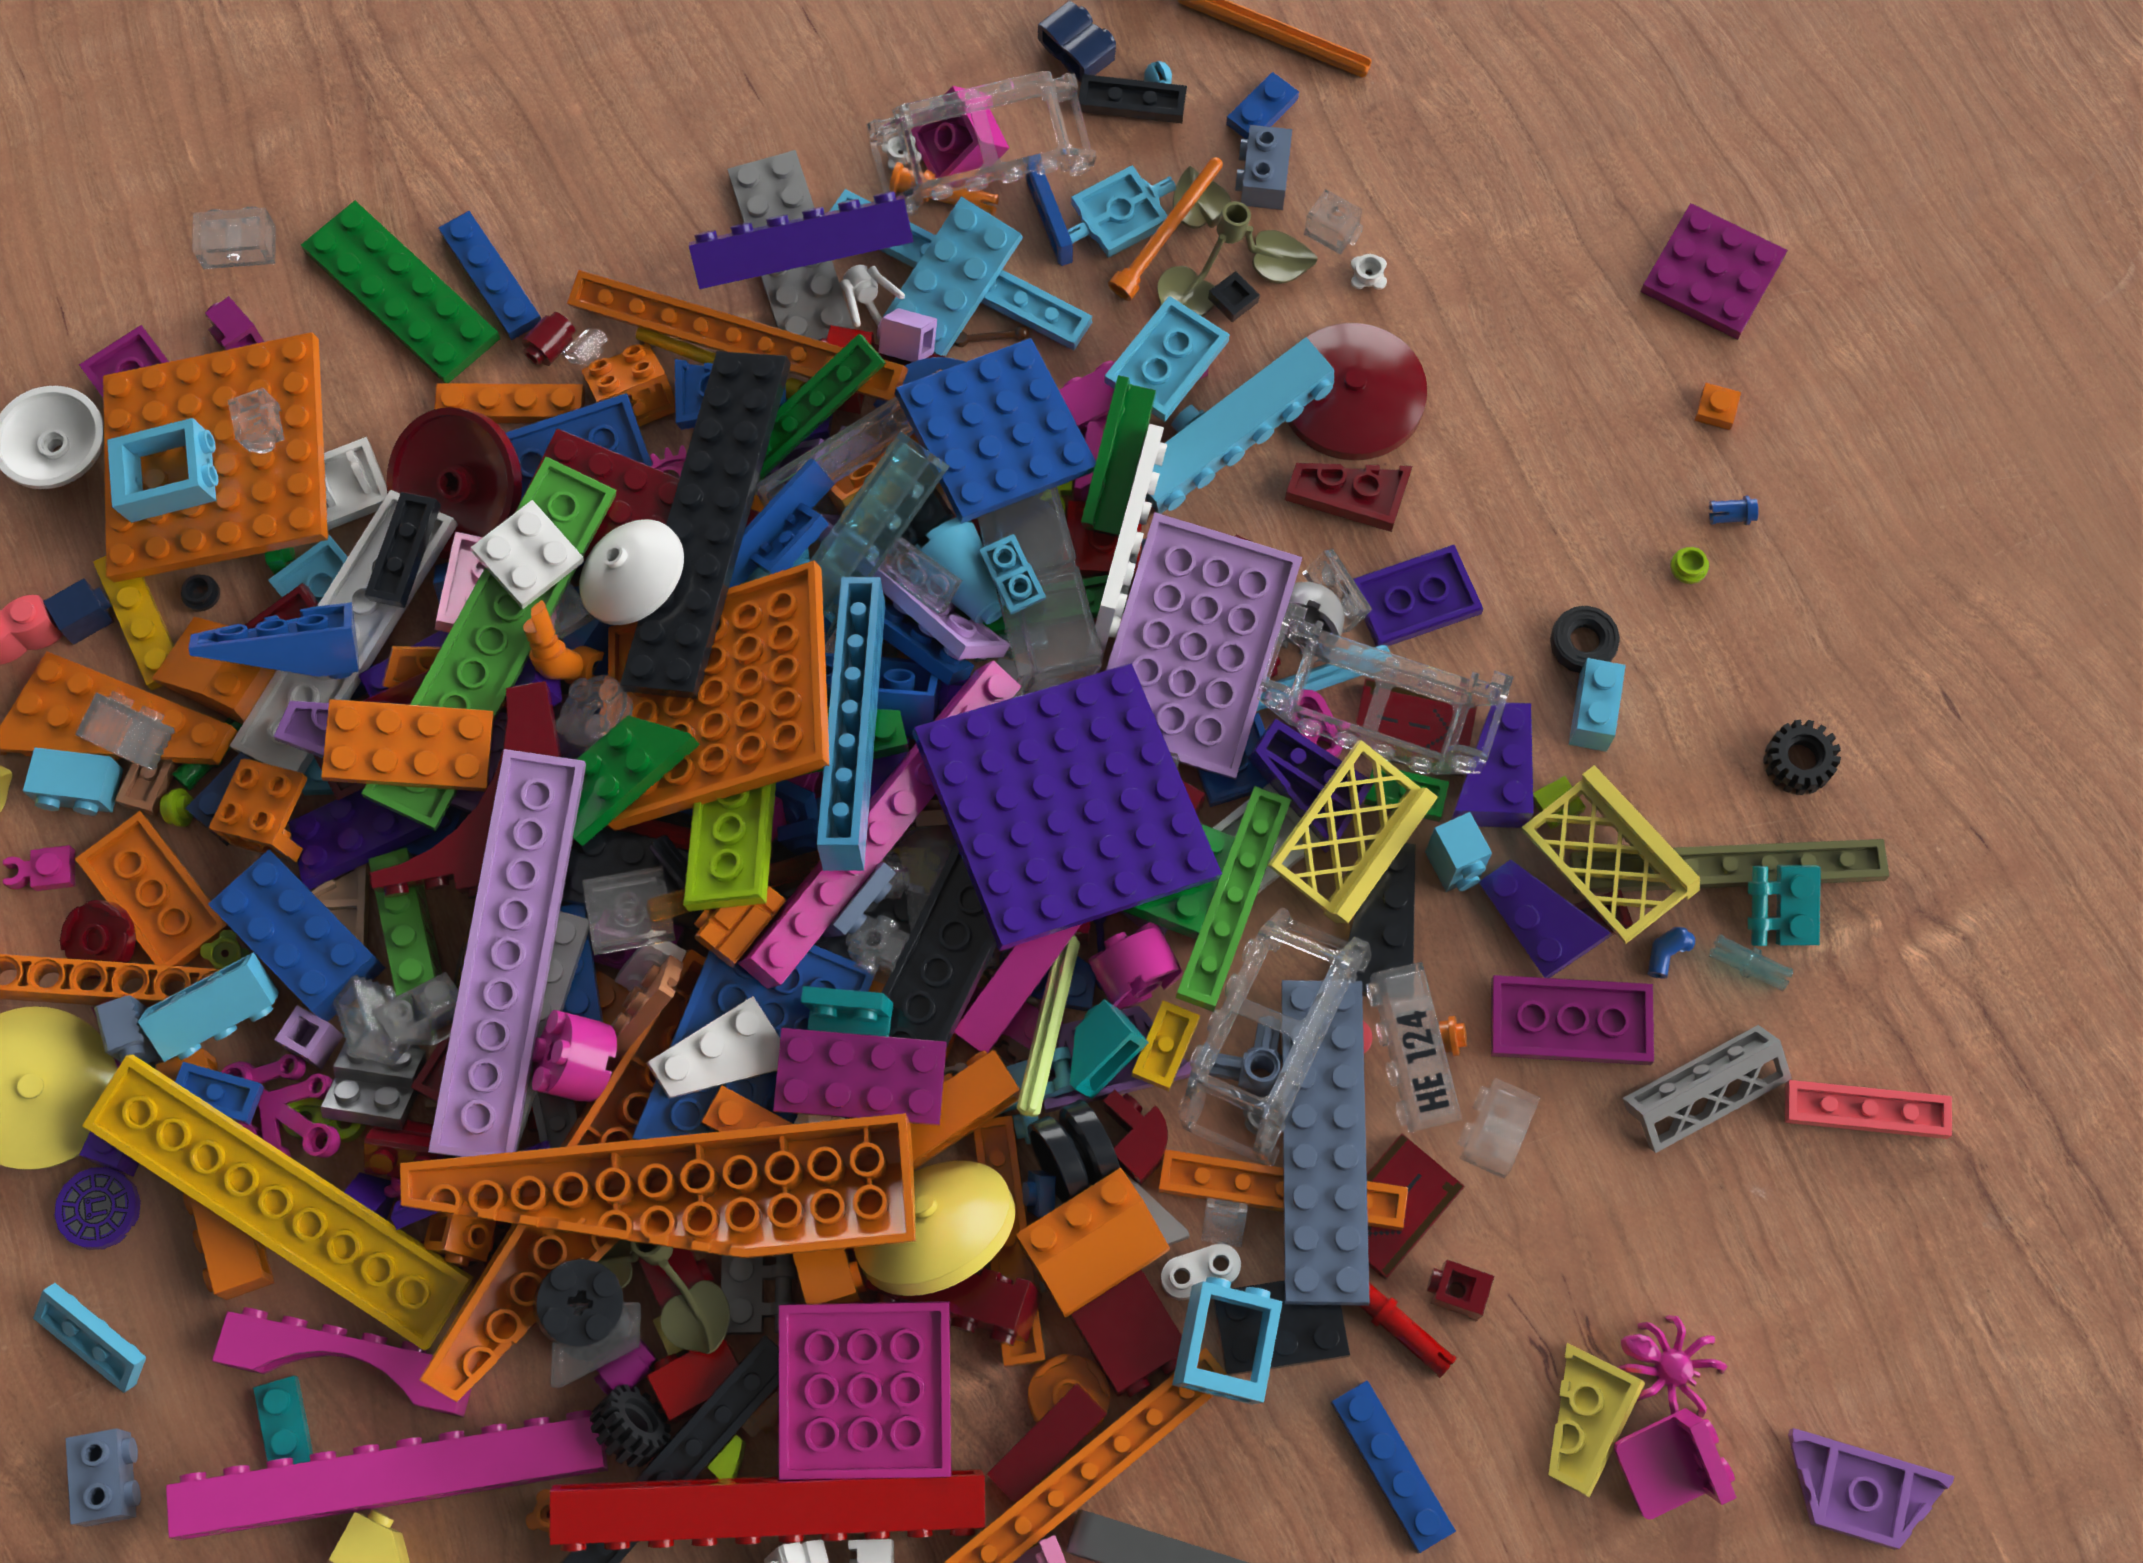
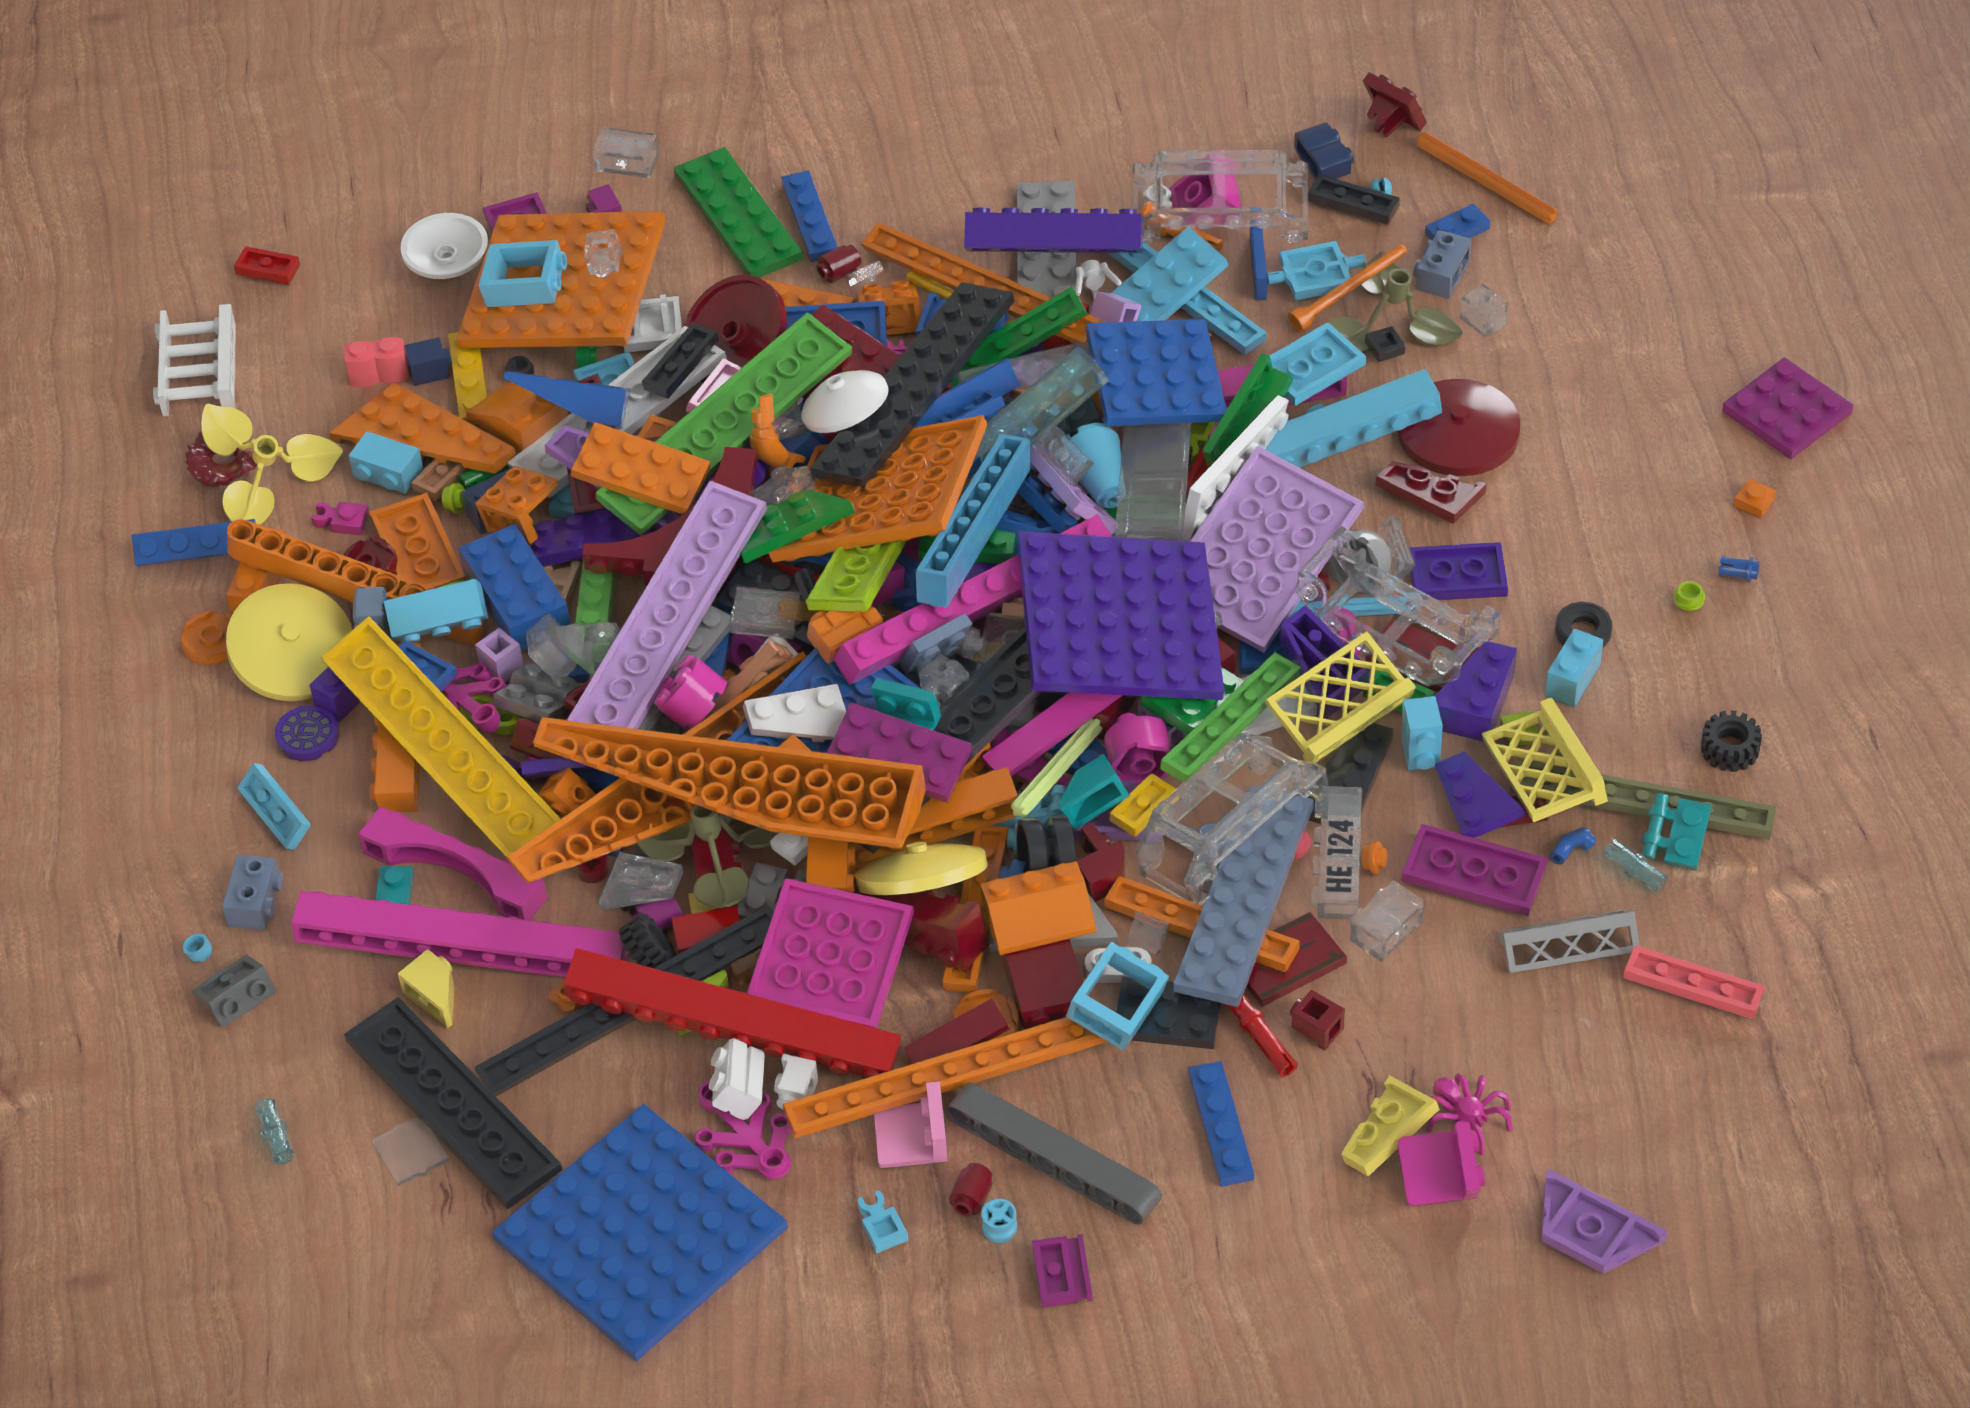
camera: 20 degrees right, 20 degrees down
(124, 730) = (437, 430): clear brick -> none
(527, 554) = (771, 368): white plate -> none
(597, 1287) = (638, 841): black brick -> none
(1012, 574) = (1133, 465): medium azure slope -> none
(1369, 263) = (1501, 350): white plate -> none

